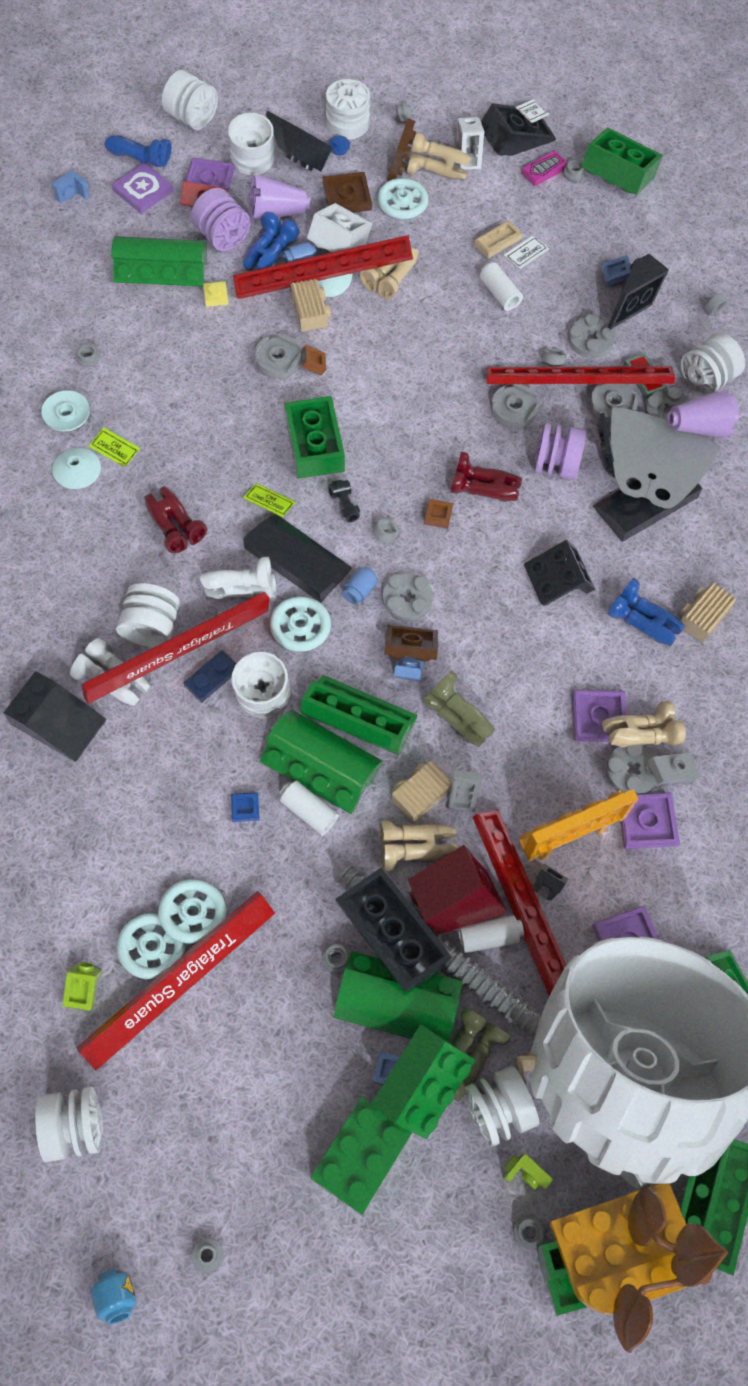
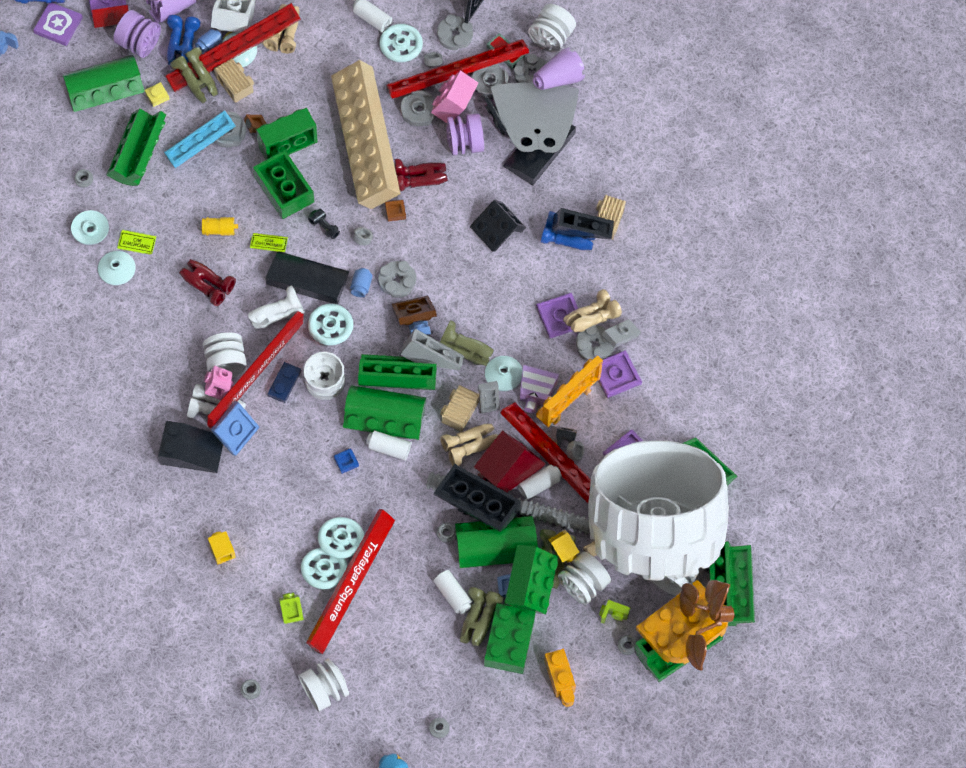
camera: 20 degrees left, 0 degrees up
(30, 864) = (221, 547): none -> yellow brick
(119, 712) = (235, 428): none -> medium blue tile
(121, 645) = (218, 382): none -> bright pink brick
(162, 340) = (136, 147): none -> green brick
(216, 459) = (219, 226): none -> yellow piece
(240, 355) = (200, 139): none -> medium azure tile
(275, 293) = (204, 76): none -> olive piece
(310, 1051) = (453, 592): none -> white brick
(317, 1105) = (471, 621): none -> olive piece
(348, 379) = (287, 133): none -> green brick
(406, 699) = (424, 349): none -> light grey slope
(413, 1248) = (560, 676): none -> light orange brick
(436, 413) = (365, 135): none -> tan brick
(489, 1048) = (564, 546): none -> yellow brick
(498, 776) = (508, 380): none -> light aqua dish
(523, 312) = (413, 51): none -> light aqua plate
(534, 800) = (536, 387): none -> lavender torso
(555, 907) = (575, 450): none -> light grey tile
(562, 401) = (454, 96): none -> bright pink brick
(669, 608) = (581, 225): none -> black slope

